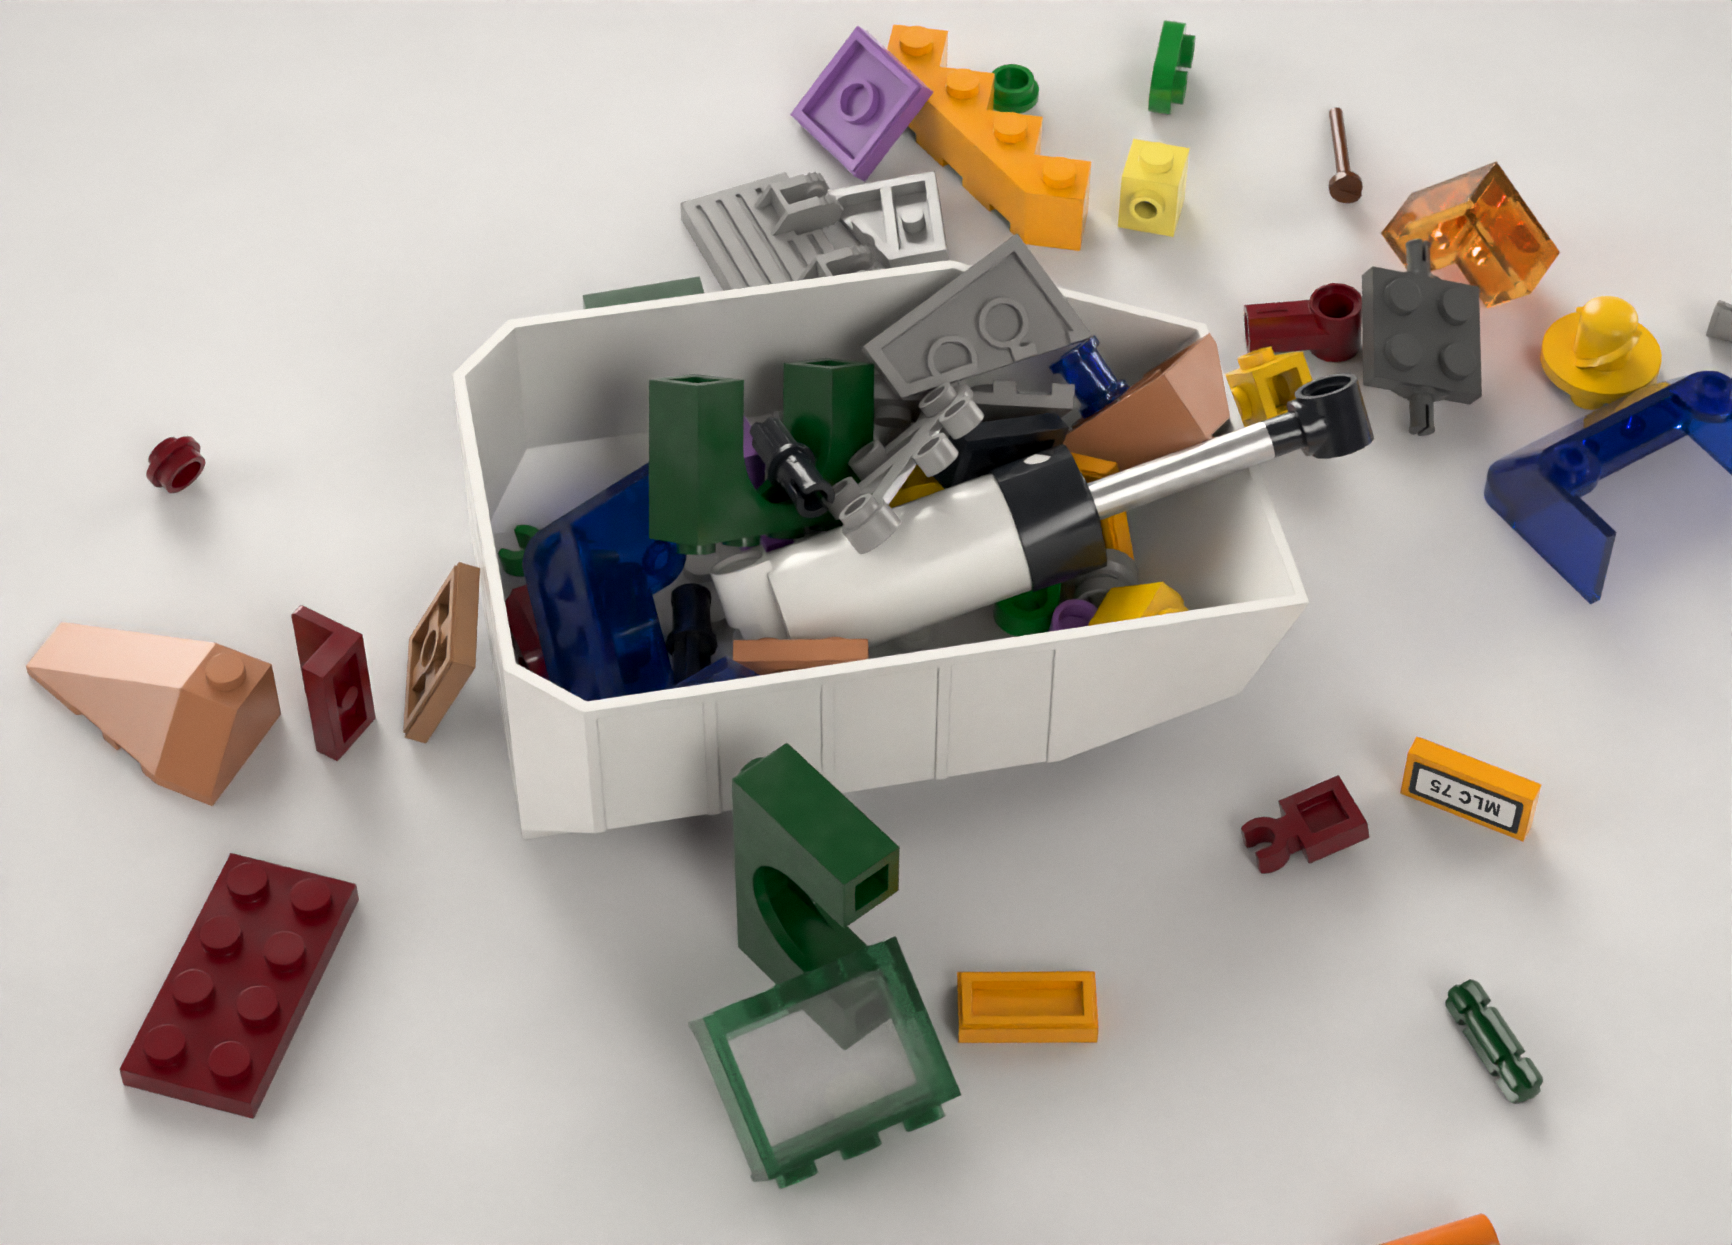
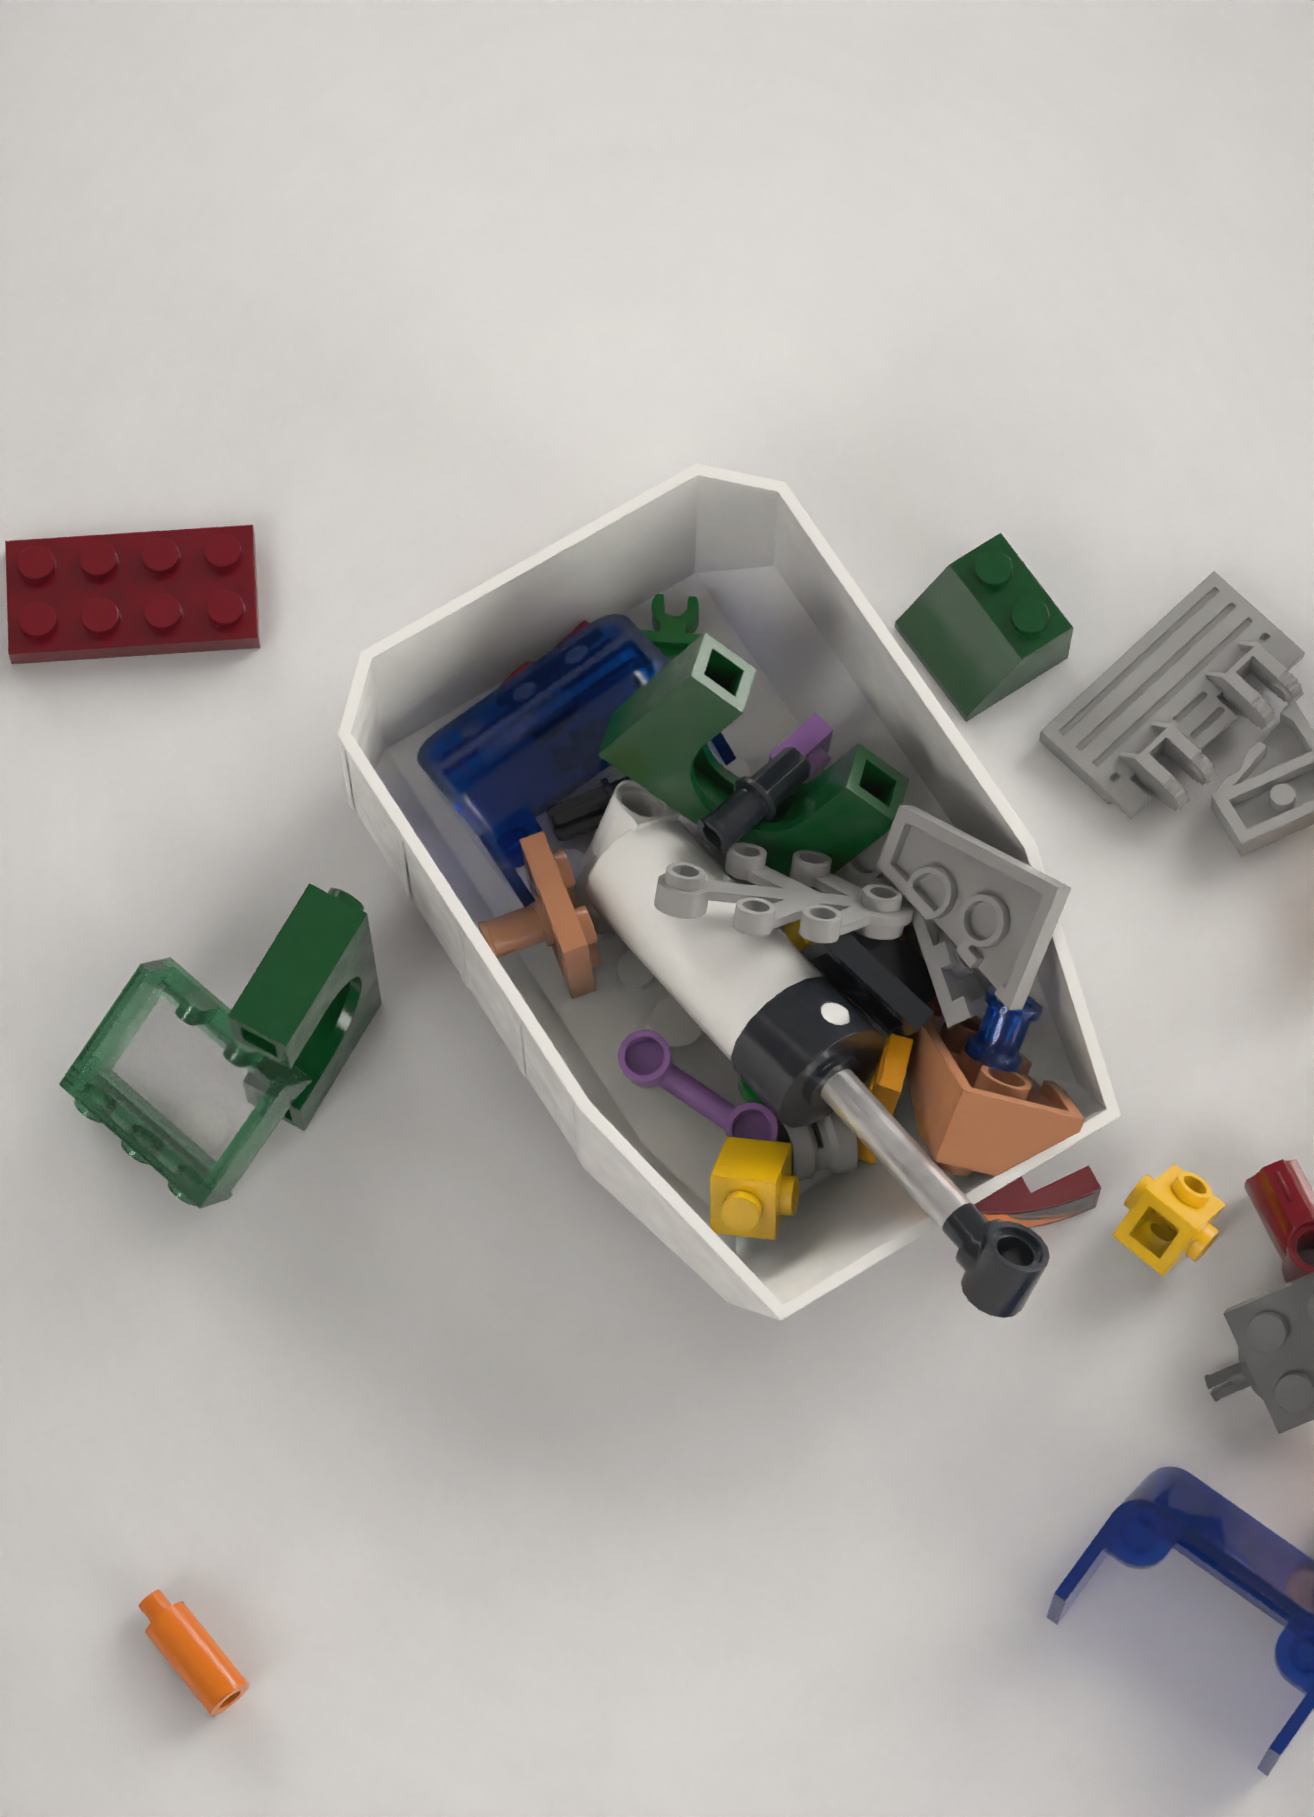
camera: 70 degrees right, 20 degrees up
(167, 701) = (393, 400): nougat wedge -> none
(175, 463) = (670, 276): dark red plate -> none
(333, 680) = (436, 528): dark red panel -> none
(1027, 1007) = (343, 1237): light orange tile -> none
(1313, 821) = (635, 1423): dark red plate -> none
(1470, 788) = (731, 1554): tile -> none
(1494, 1041) = (450, 1652): dark green axle -> none

